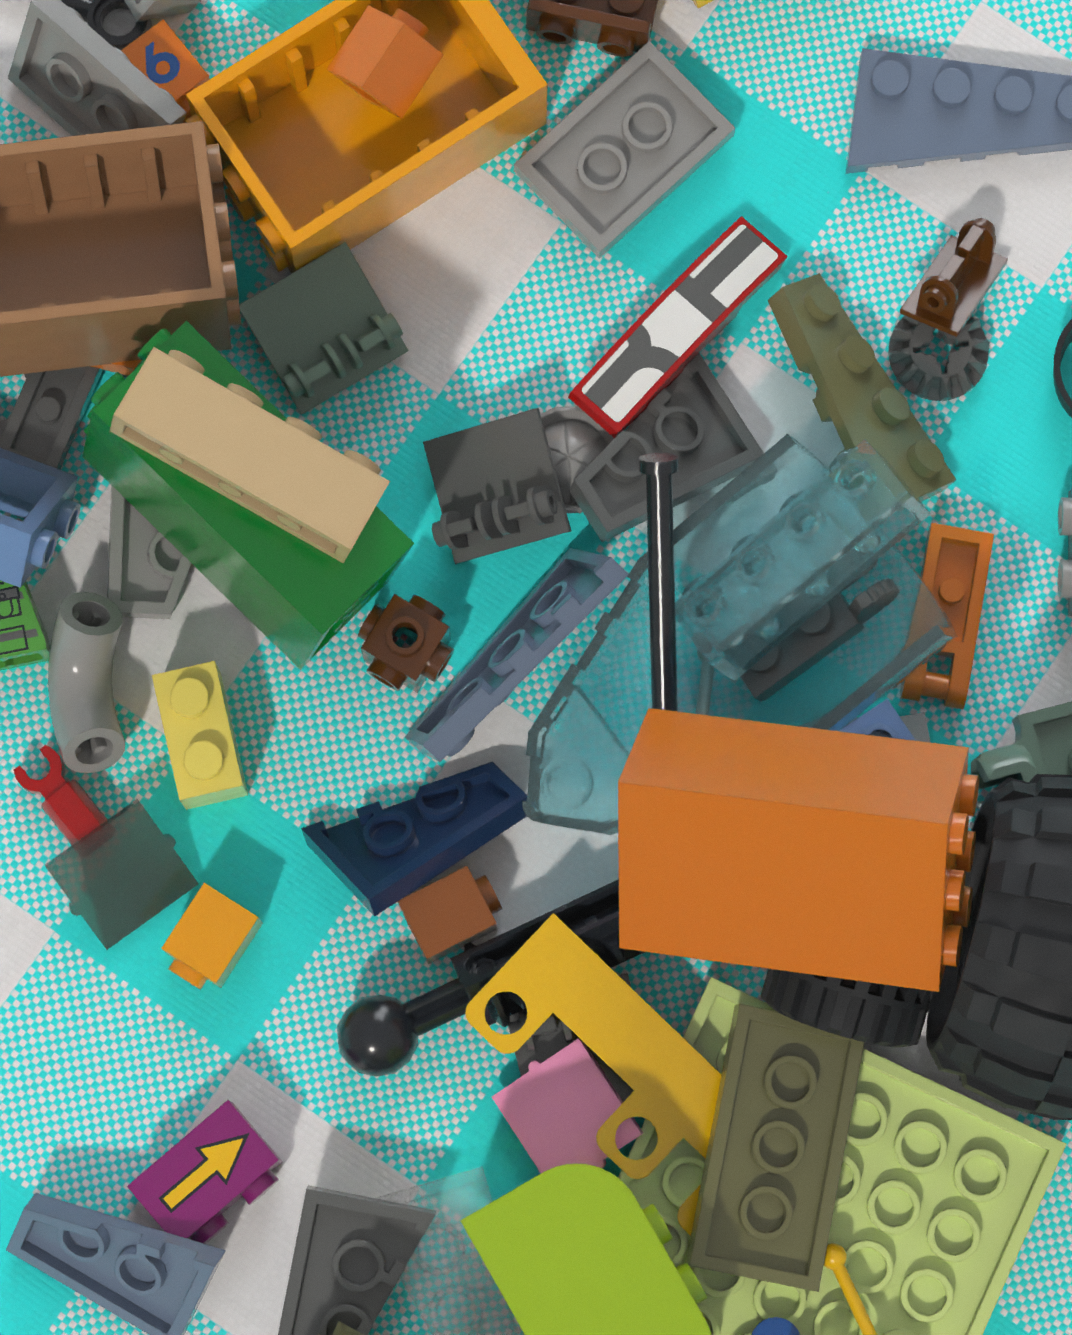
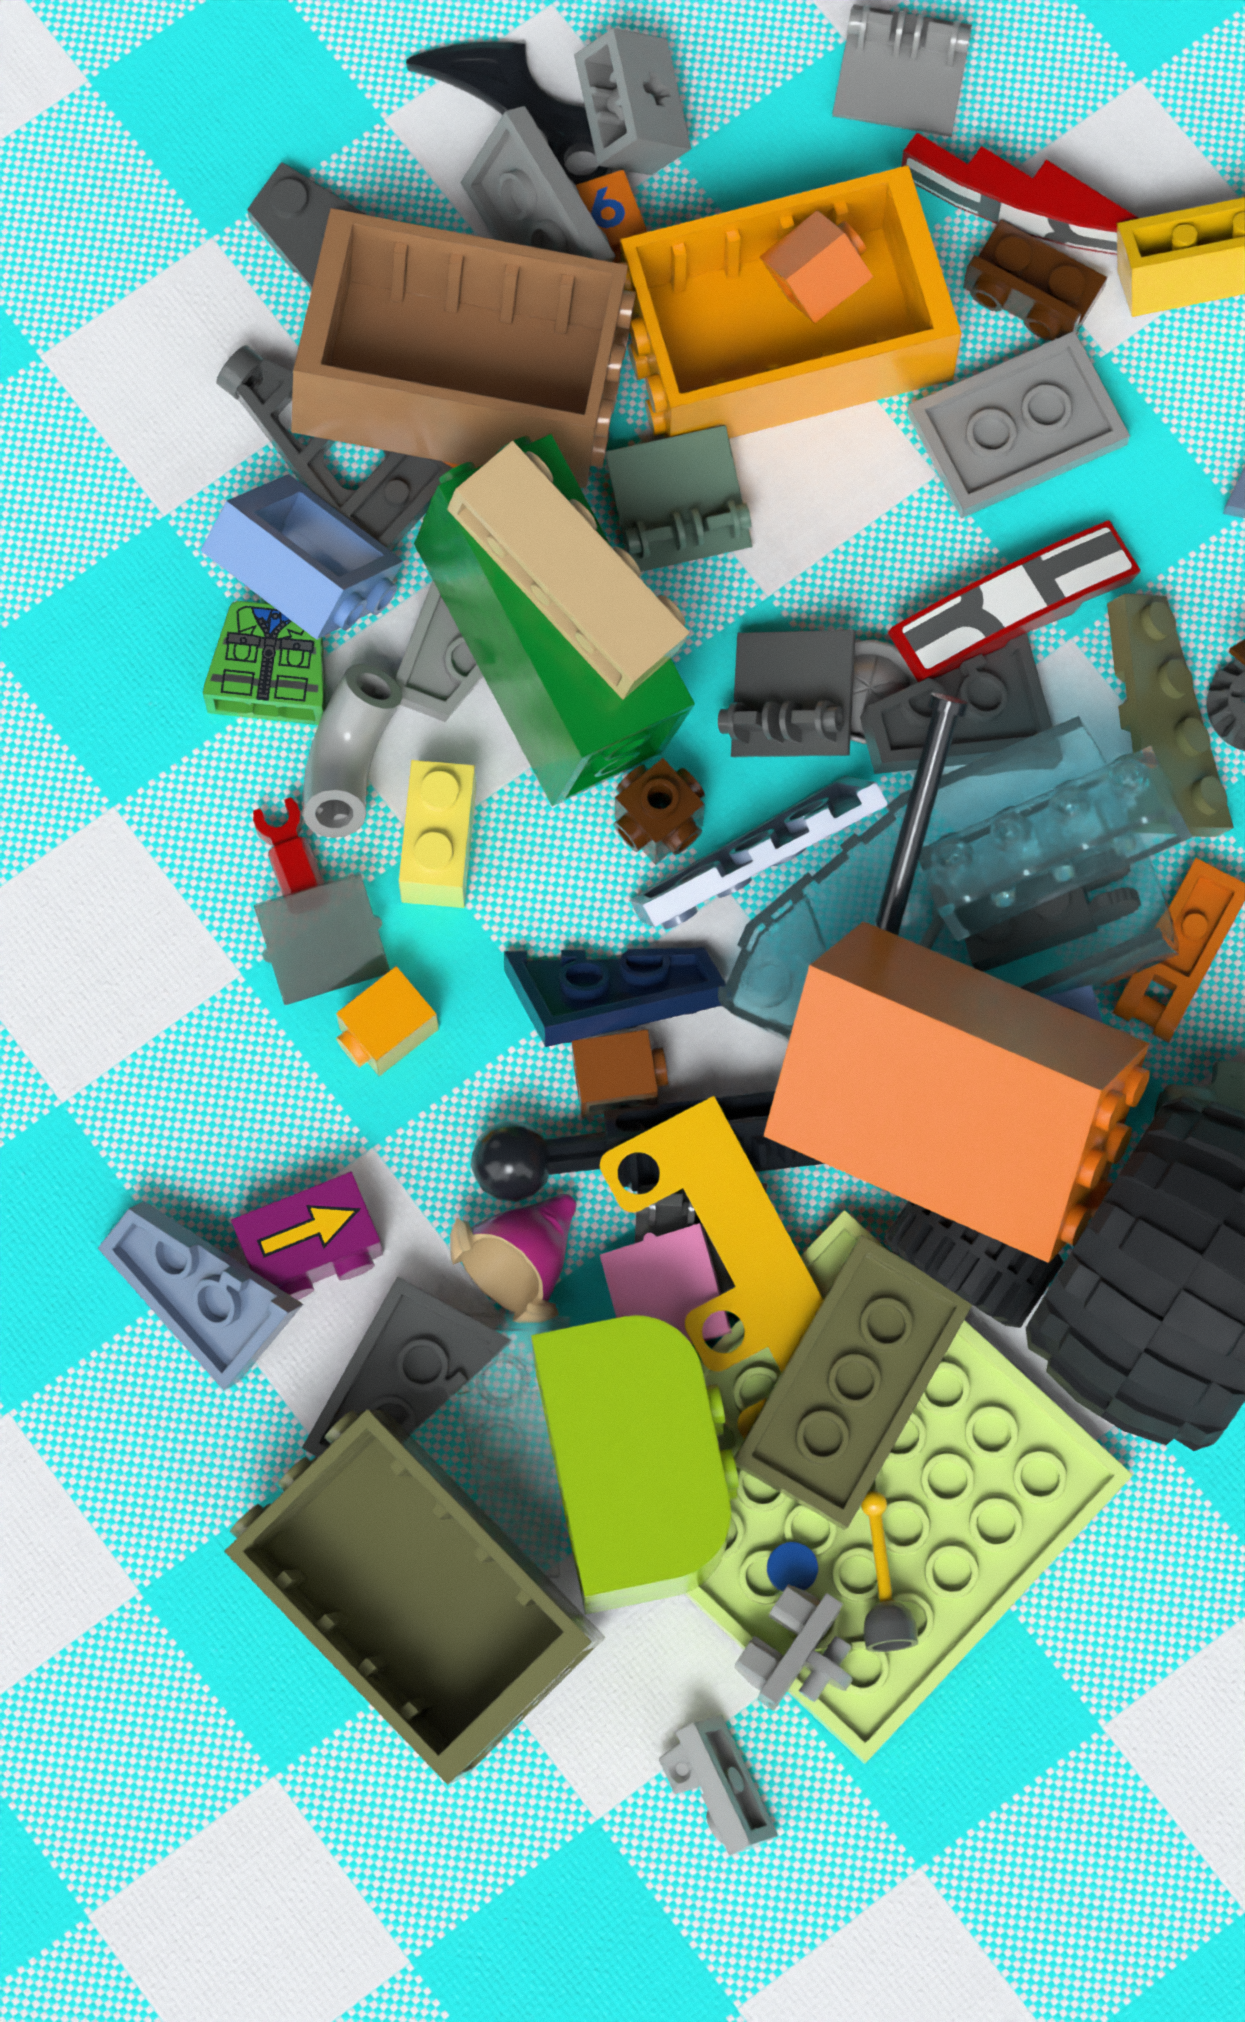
camera: 20 degrees right, 5 degrees down
(414, 1124) = (517, 1255): none -> hat

